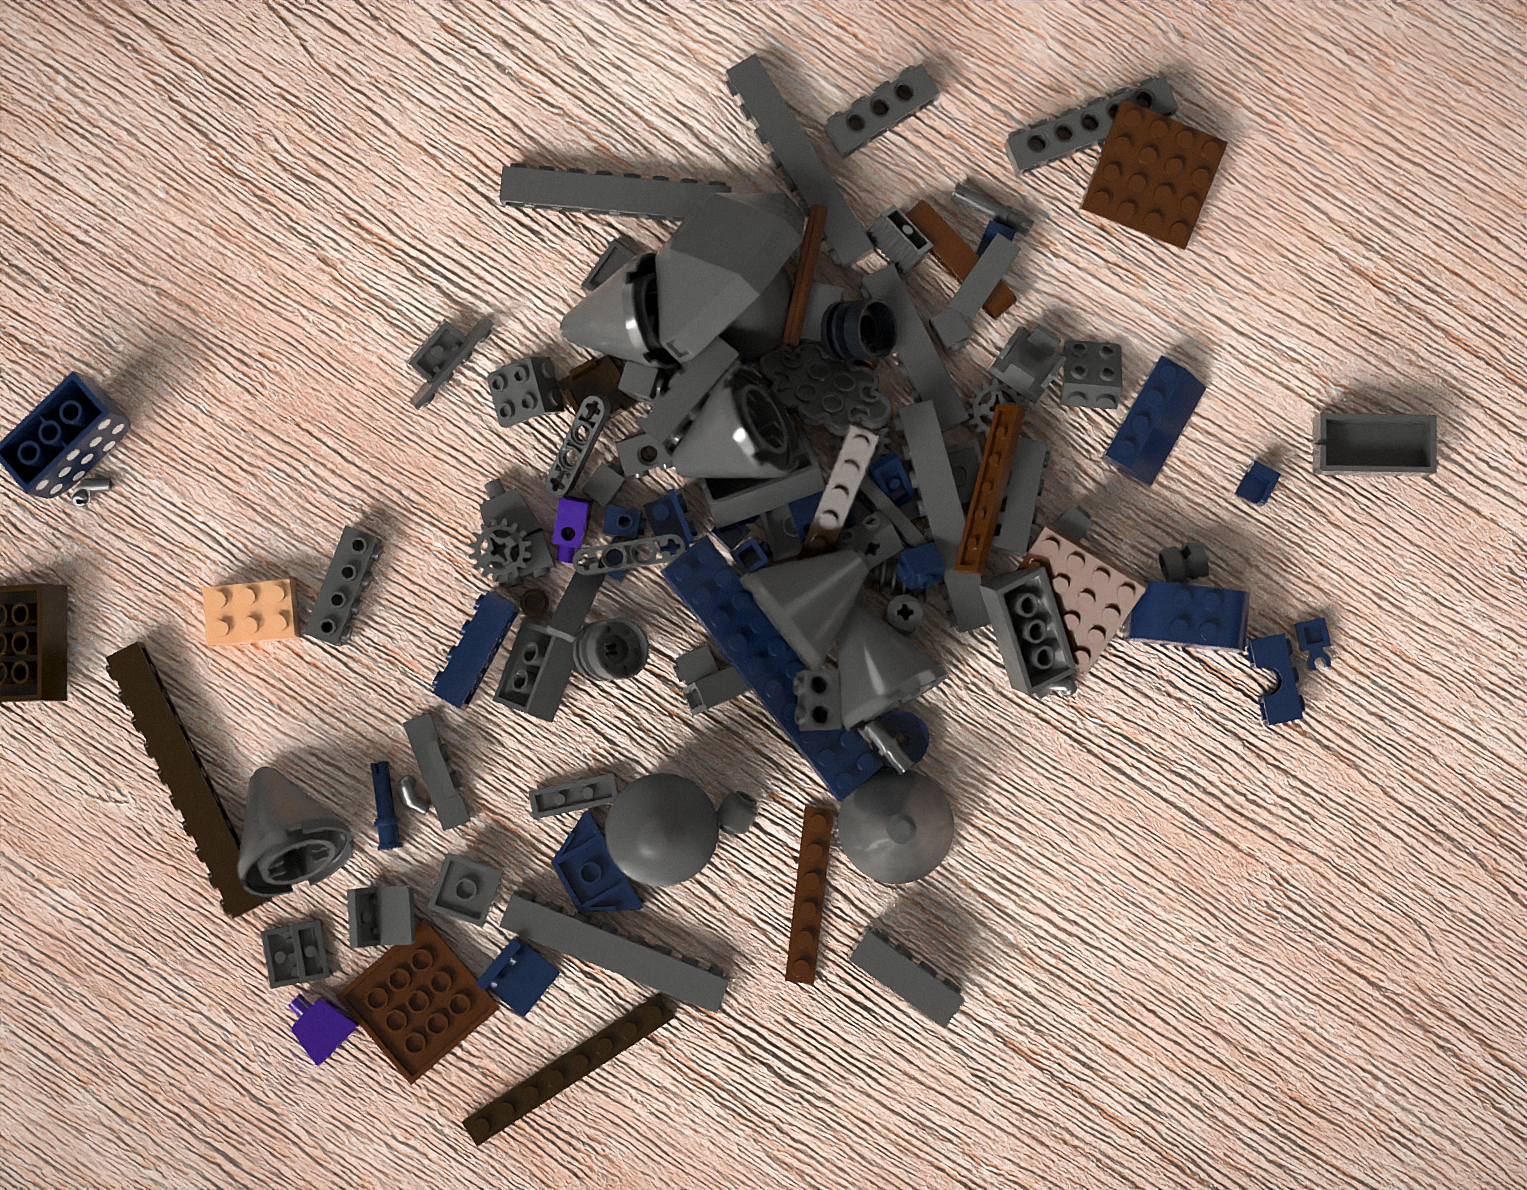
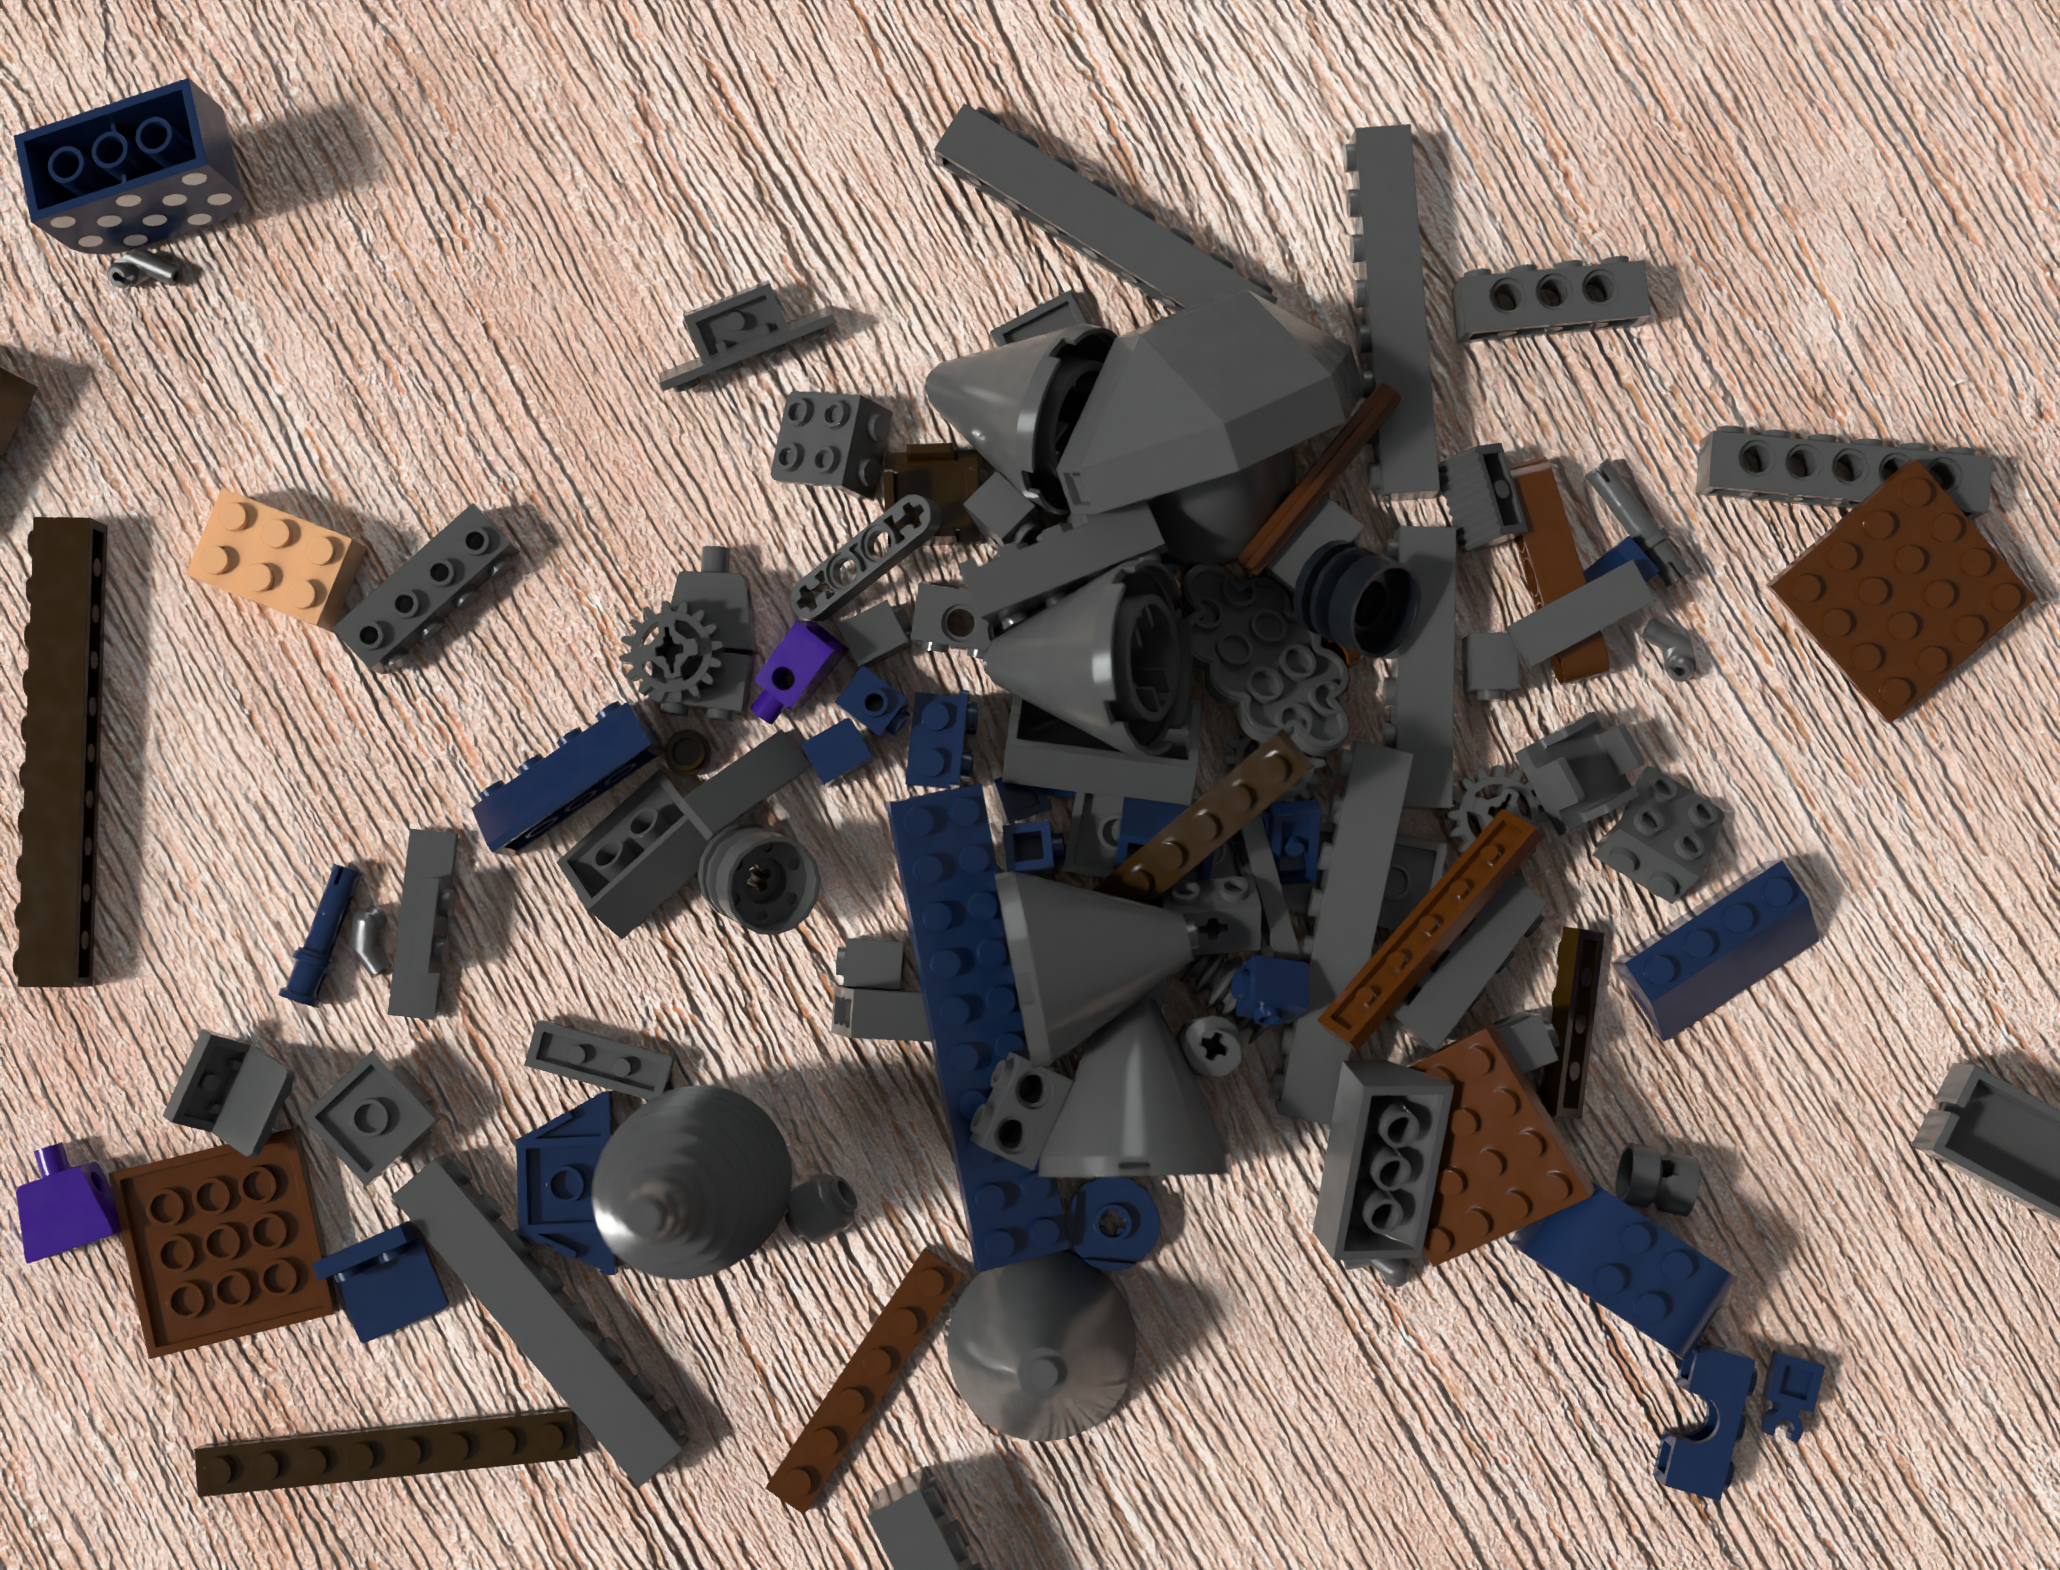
camera: 30 degrees right, 0 degrees up
(288, 837) = (152, 908): dark grey cone -> none
(294, 954) = (85, 1081): dark grey slope -> none
(629, 558) = (857, 750): dark grey beam -> none
(888, 746) = (1089, 1228): dark grey pin -> none
(1048, 268) = (1675, 649): none -> flat silver arm
(1094, 501) = (1573, 1021): none -> dark brown plate
(1257, 483) = (1824, 1118): dark blue panel -> none

